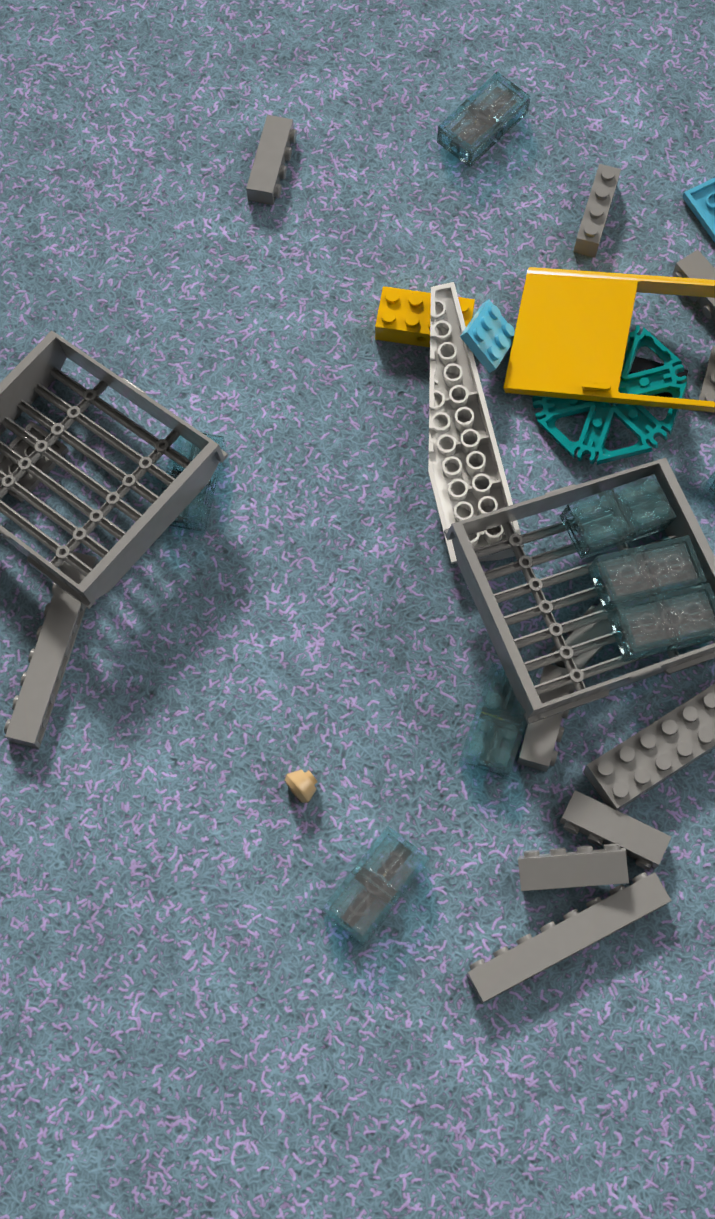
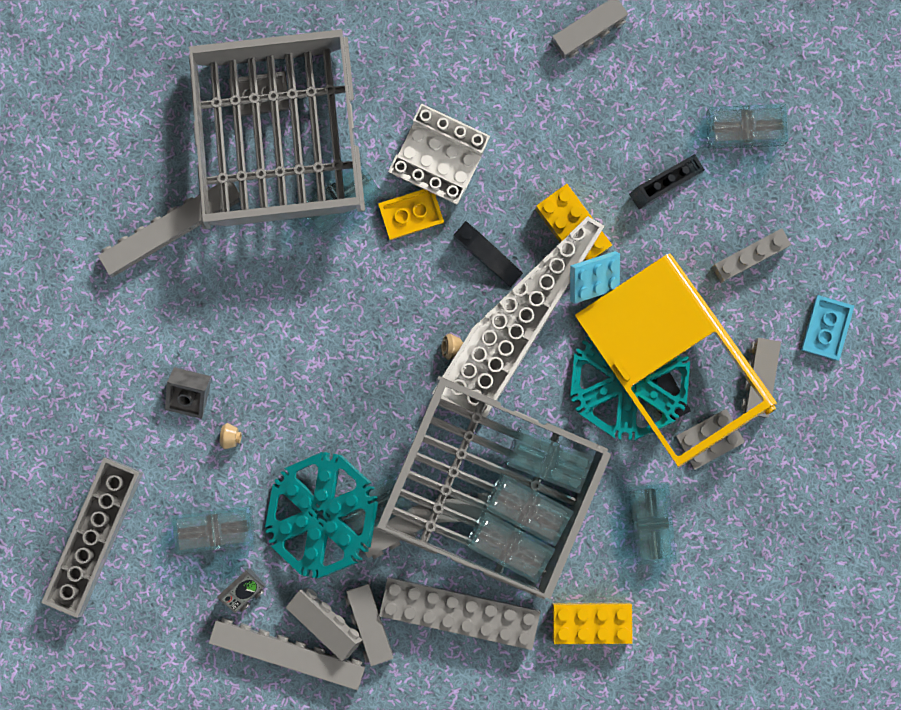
camera: 40 degrees right, 15 degrees up
(220, 784) = (187, 392): none -> flat silver slope
(244, 362) = (439, 154): none -> white slope
(262, 1015) = (92, 537): none -> light grey brick
(269, 437) = (410, 213): none -> yellow plate
(367, 408) = (487, 253): none -> black slope
(424, 512) = (450, 346): none -> tan cone
(462, 917) = (242, 590): none -> slope
(463, 220) = (665, 182): none -> black slope
(489, 764) = (334, 508): none -> teal plate

